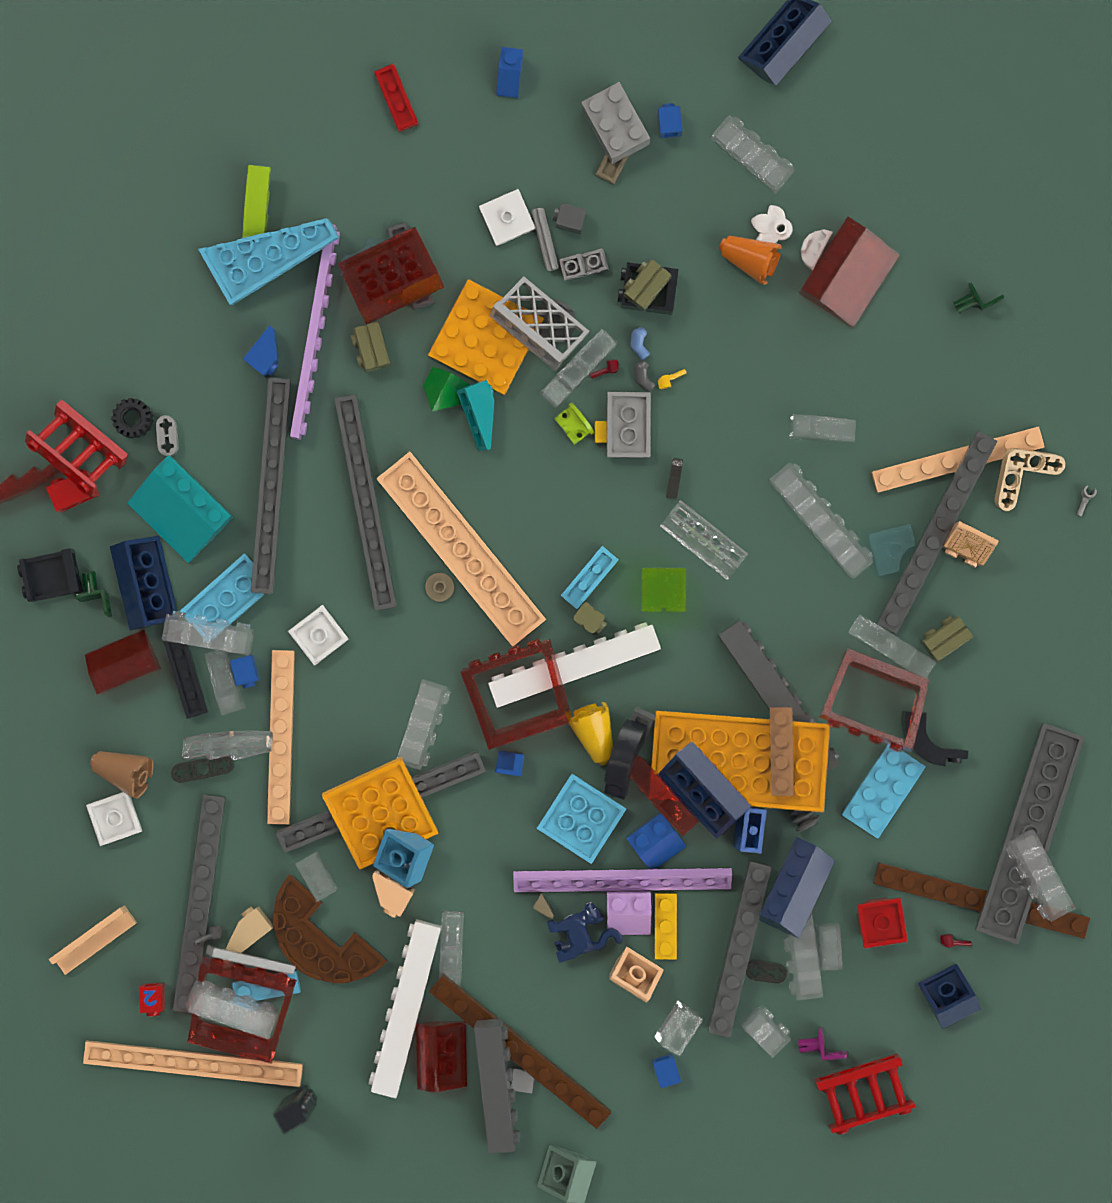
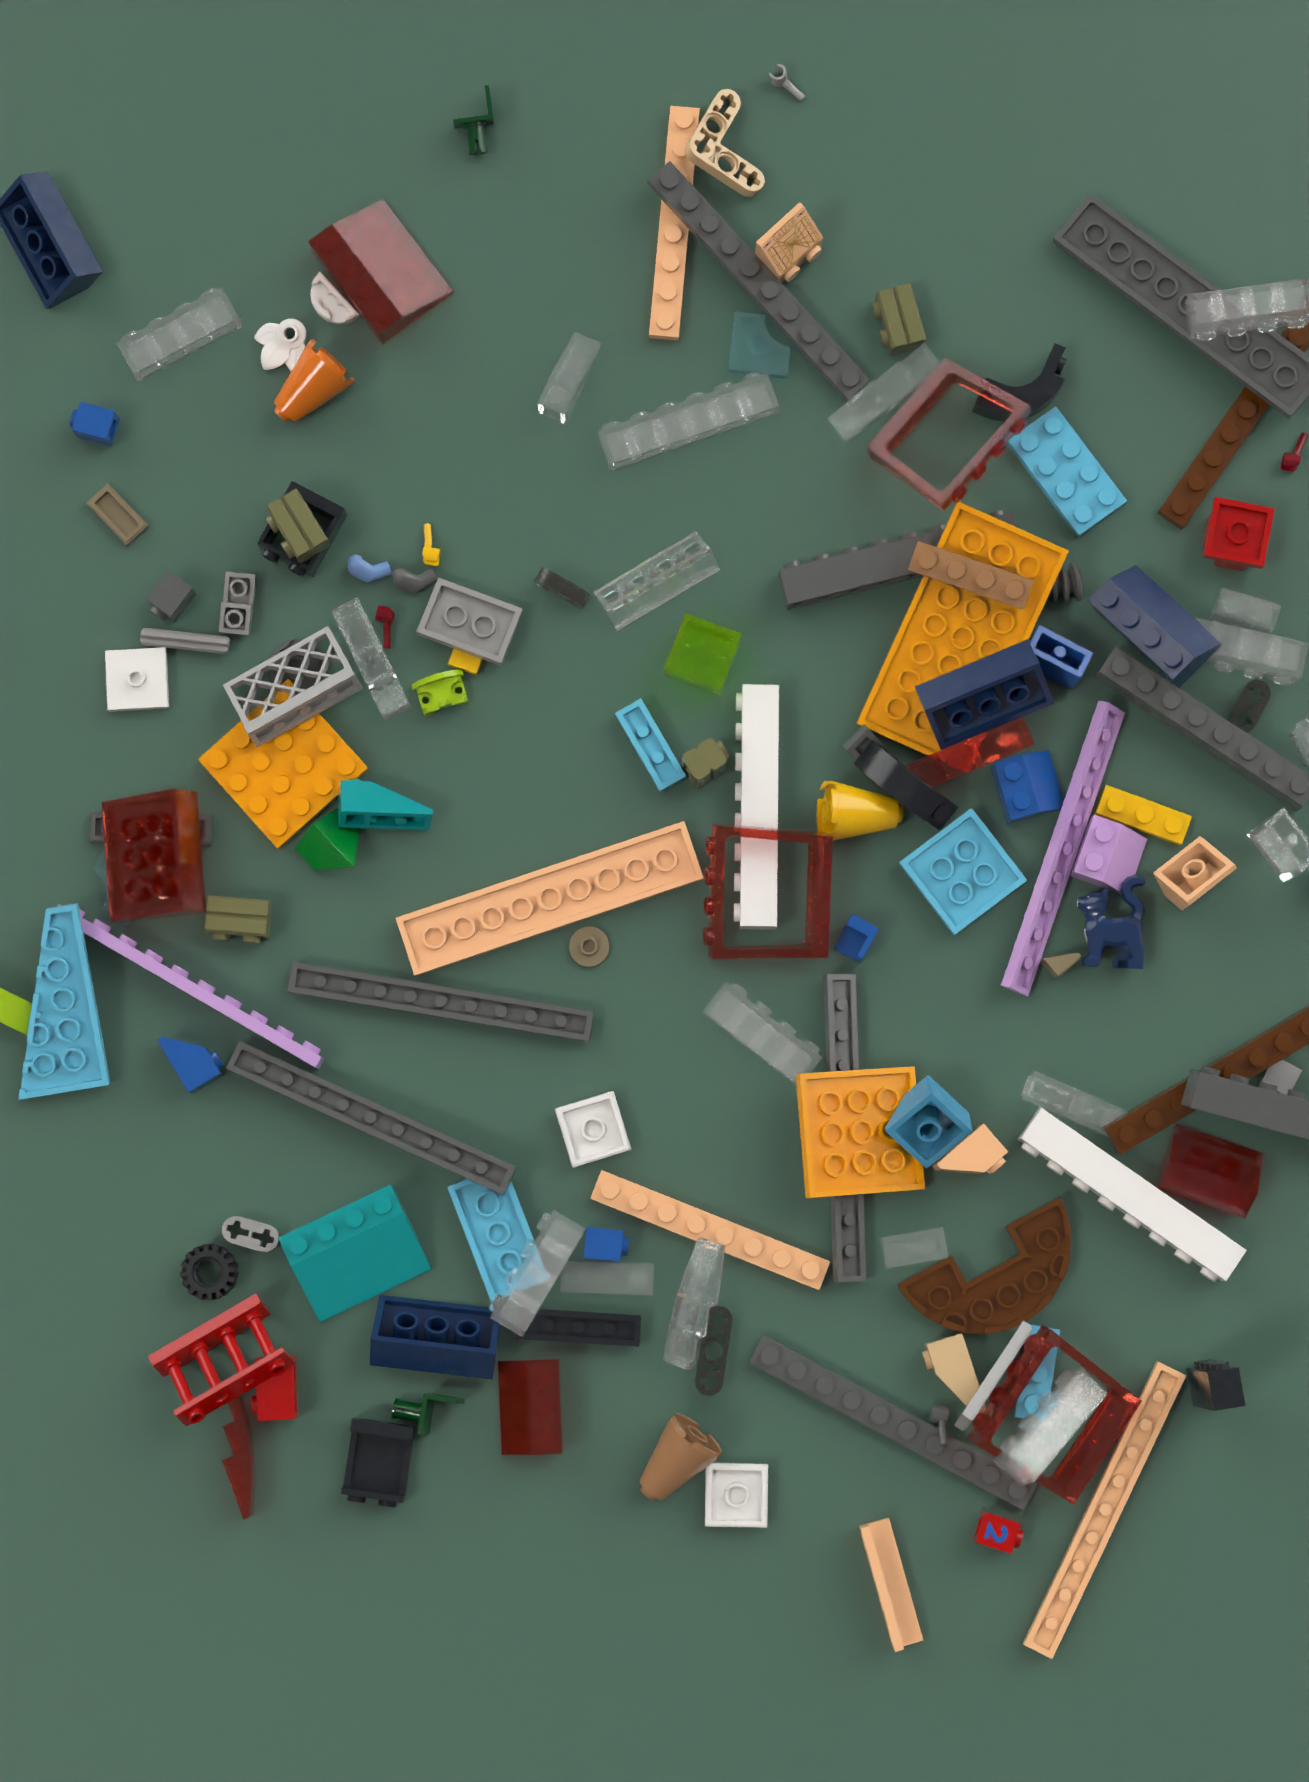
camera: 75 degrees left, 5 degrees down
(615, 123) = (69, 493): light grey brick -> none

